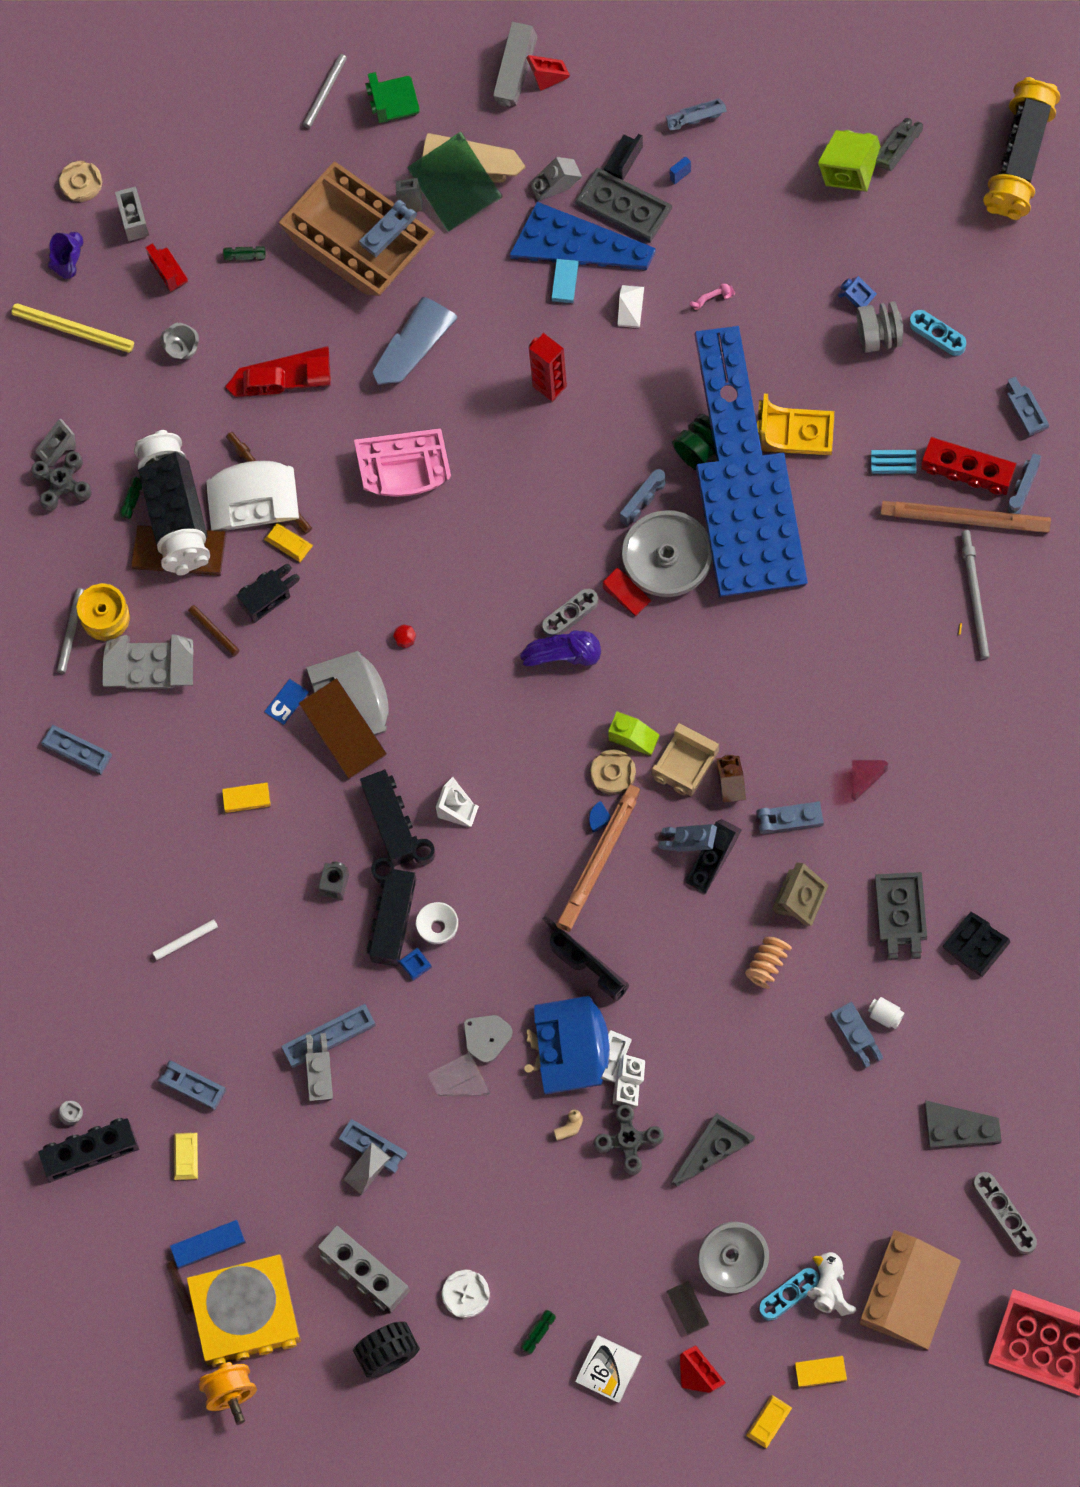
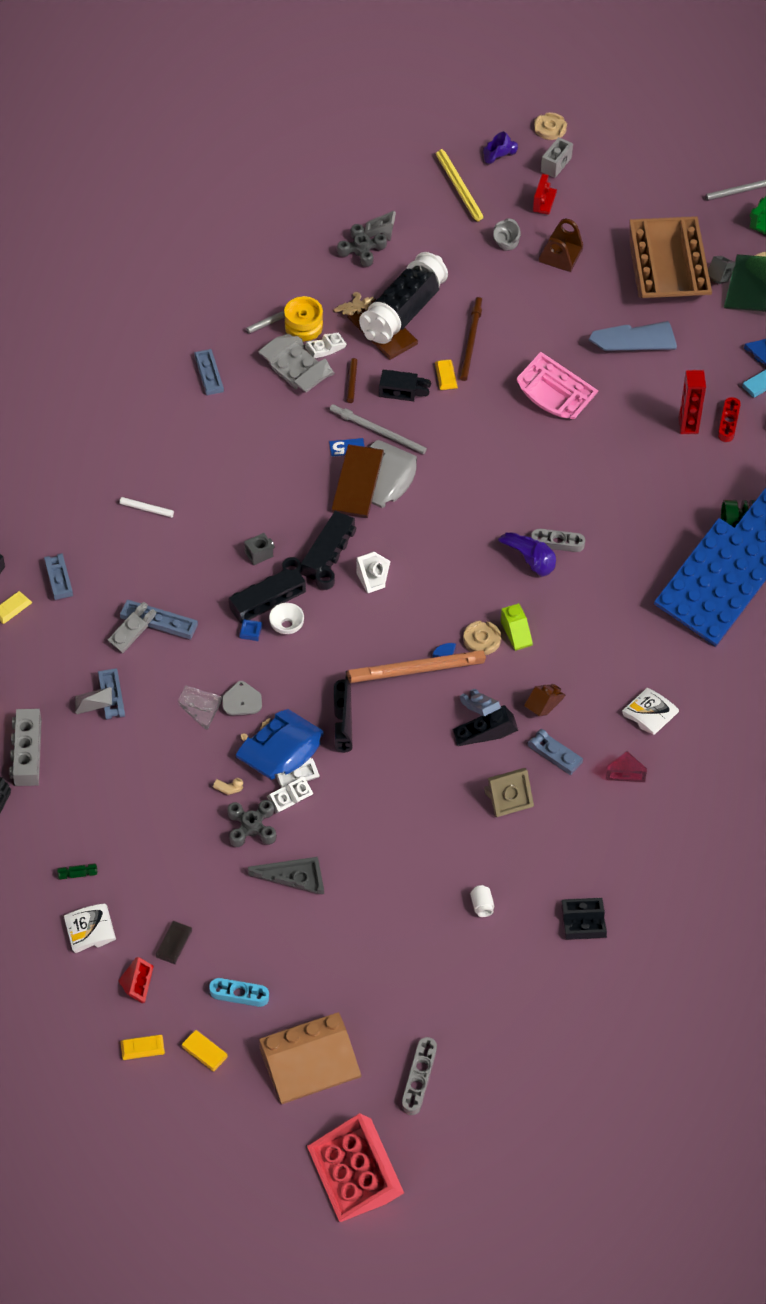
camera: 40 degrees right, 15 degrees down
(130, 551) = (357, 305): none -> tan piece
(131, 498) = (378, 288): dark green axle -> none
(149, 618) = (329, 344): none -> white slope
(239, 298) = (563, 247): none -> reddish brown hose
(244, 253) = (596, 225): dark green axle -> none
(246, 797) = (266, 470): yellow tile -> none
(252, 495) = (454, 335): white slope -> none
(252, 669) = (348, 415): none -> light grey bar
(276, 375) = (552, 300): red panel -> none
(387, 228) = (686, 268): sand blue plate -> none
(404, 636) = (451, 471): red tile -> none
(465, 1294) = (64, 814): white tile -> none
(578, 337) = (730, 425): none -> red beam
(625, 592) = (603, 556): red slope -> none
(643, 496) = (672, 518): sand blue plate -> none
(667, 553) = (649, 555): light grey dish -> none
(685, 760) = (530, 668): tan panel -> none
(740, 1269) = (216, 933): light grey dish -> none
(766, 960) = (446, 807): light nougat piece -> none
(824, 701) = (650, 711): none -> white slope
(828, 1292) = (260, 1010): white animal -> none
(856, 1033) = (452, 896): sand blue hinge -> none
(901, 912) = (559, 859): dark grey tile -> none
(959, 1127) = (450, 1004): dark grey wing -> none

